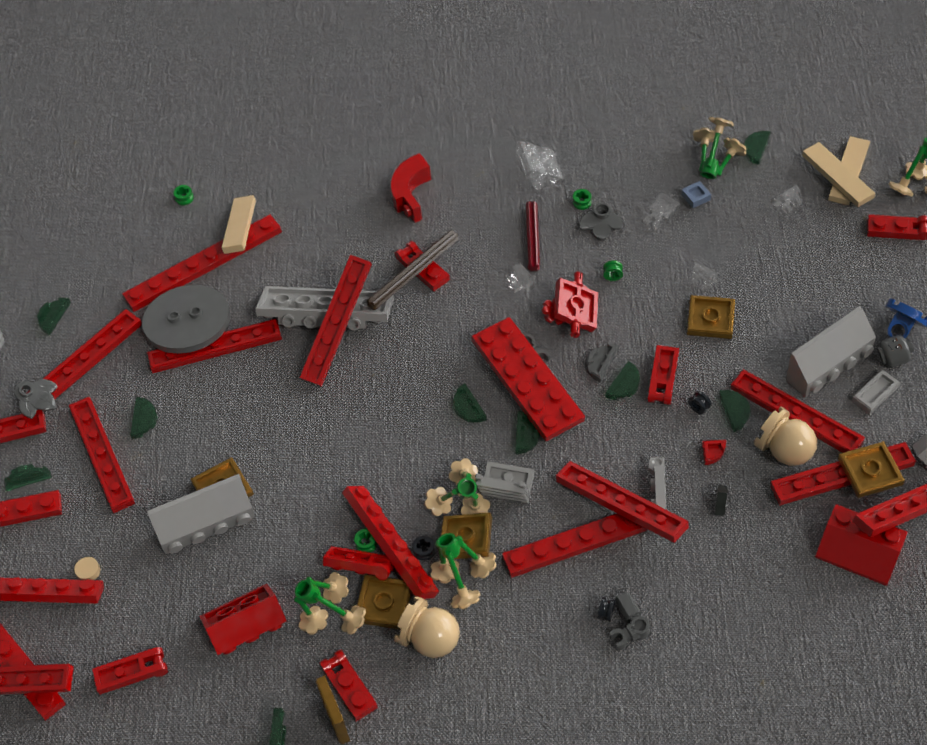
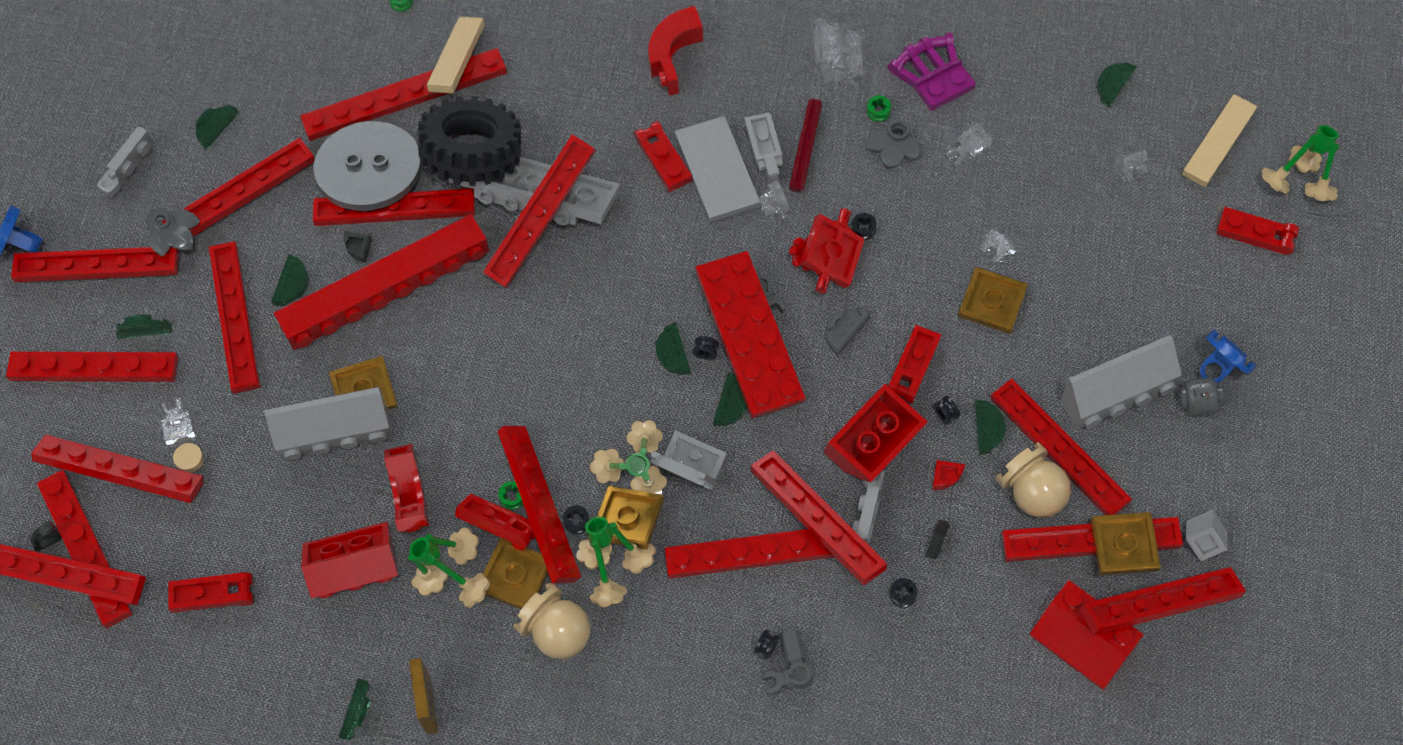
camera: 10 degrees right, 10 degrees up
(72, 545) = (177, 425): none -> clear plate
(191, 379) = (357, 245): none -> pearl dark grey tile
(218, 402) = (382, 282): none -> red brick
(250, 291) = (465, 160): none -> black tyre
(277, 552) = (407, 488): none -> red arch
(349, 686) = (451, 667): red plate -> none
(412, 270) = (647, 162): dark brown axle -> none
(471, 269) = (717, 169): none -> light grey tile
(494, 396) = (705, 348): none -> black bush
(500, 241) = (764, 144): none -> light grey hinge
(593, 279) = (864, 219): none -> black bush
(613, 270) = (890, 213): green bush -> none
(624, 174) = (940, 85): none -> magenta plate
(625, 383) = (866, 364): clear green tile -> none
(648, 431) = (875, 435): none -> red slope
(696, 194) = (1019, 133): sand blue plate -> none
(709, 167) = (1047, 100): plant -> none
(712, 544) = (897, 586): none -> black bush
(838, 174) = (1202, 144): tan tile -> none
(875, 391) = (1163, 442): light grey tile -> none

